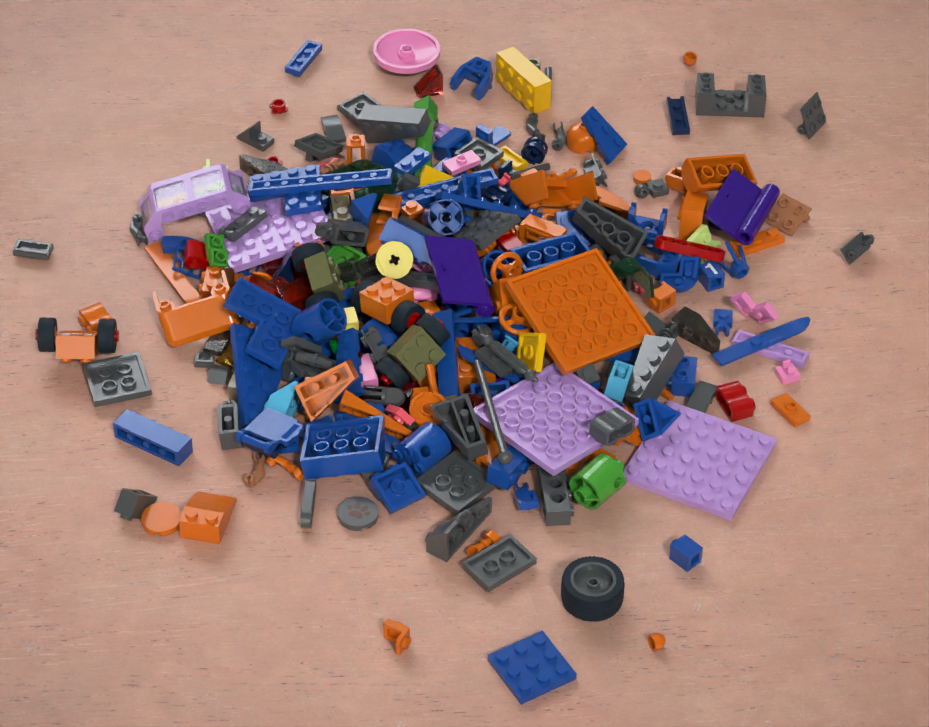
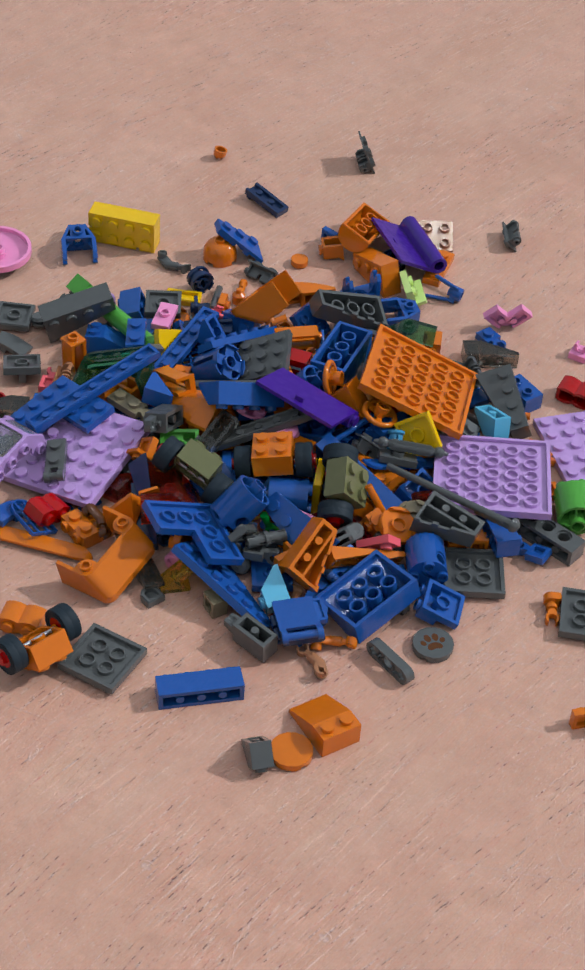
camera: 45 degrees left, 0 degrees up
(215, 250) = (65, 501): bright green slope -> none
(219, 374) = (179, 601): dark grey slope -> none
(371, 340) = (305, 503): dark grey hinge -> none
(397, 249) = (253, 415): light yellow plate -> none
(430, 83) = (48, 266): clear red slope -> none
(453, 533) = (526, 610): dark grey wedge -> none
(493, 136) = (149, 282): bracket -> none
(557, 144) = (202, 261): dark grey arm -> none
(612, 426) = (549, 456): dark grey brick -> none
(654, 417) = (557, 433): blue slope -> none
(655, 188) = (318, 264): dark grey plate -> none
(686, 277) = (431, 312): blue plate -> none
(689, 248) = (417, 293): red beam -> none
(702, 396) = (552, 403): dark grey slope -> none
(711, 276) = (444, 308): blue brick -> none
(744, 103) = (304, 164): dark grey plate -> none
(761, 341) = (538, 338): blue piece -> none
(778, 352) = (545, 341): lavender tile -> none

